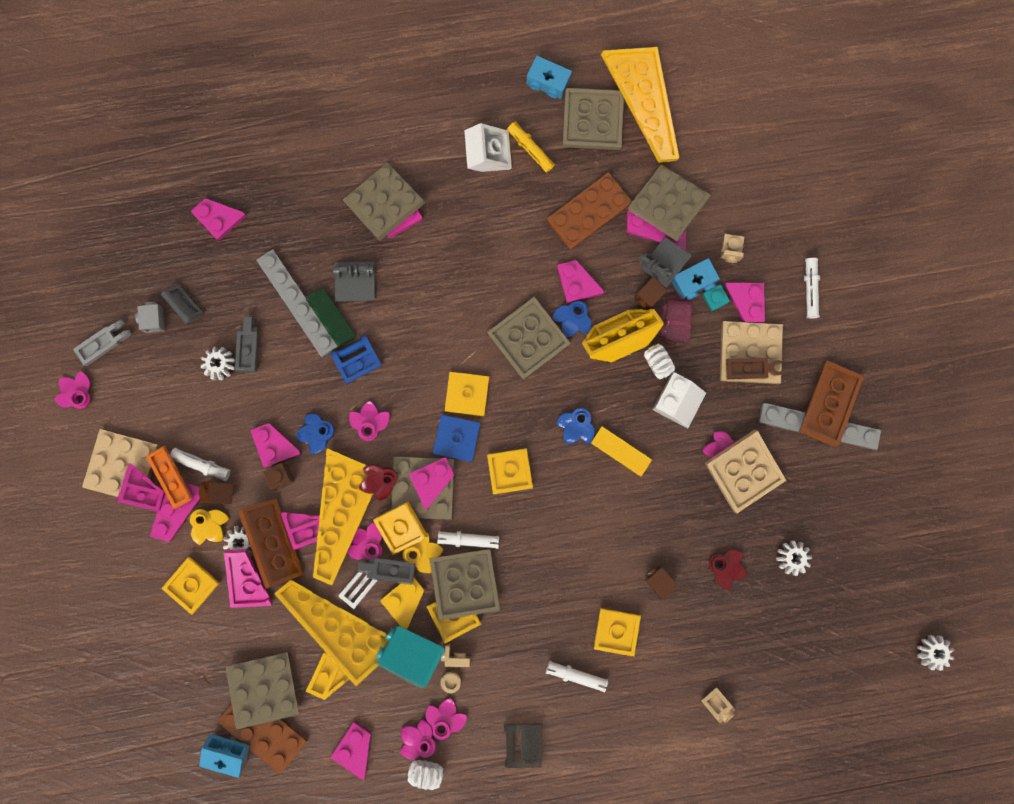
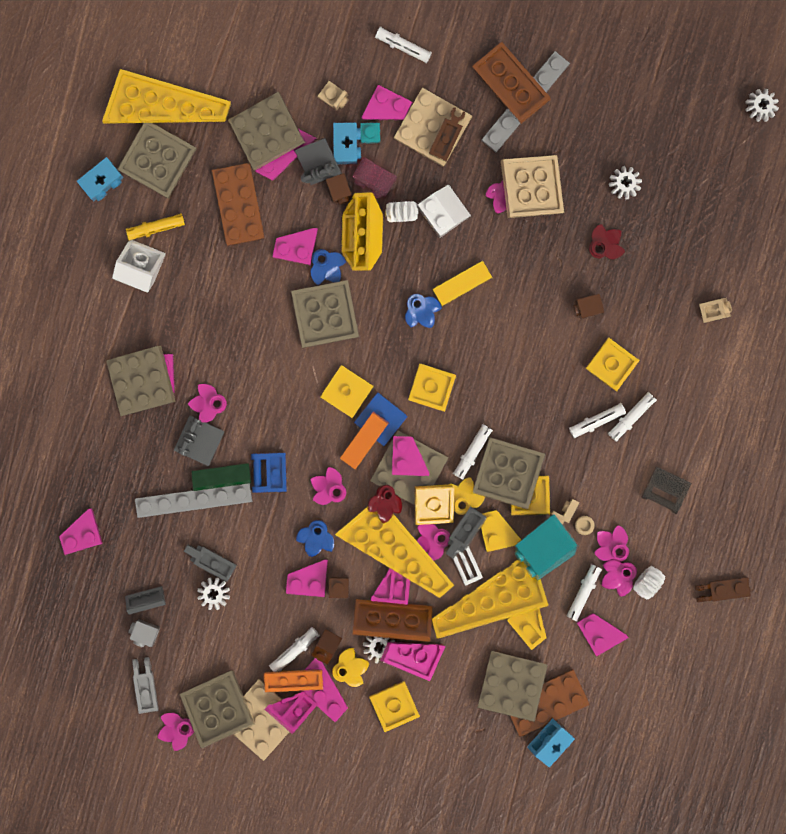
camera: 65 degrees left, 5 degrees up
(109, 419) = (217, 709): none -> dark tan plate
(386, 714) = (584, 592): none -> white pin
(393, 270) = (205, 403): none -> dark pink plate
(429, 432) = (364, 440): none -> orange tile
(575, 659) = (576, 430): none -> white pin

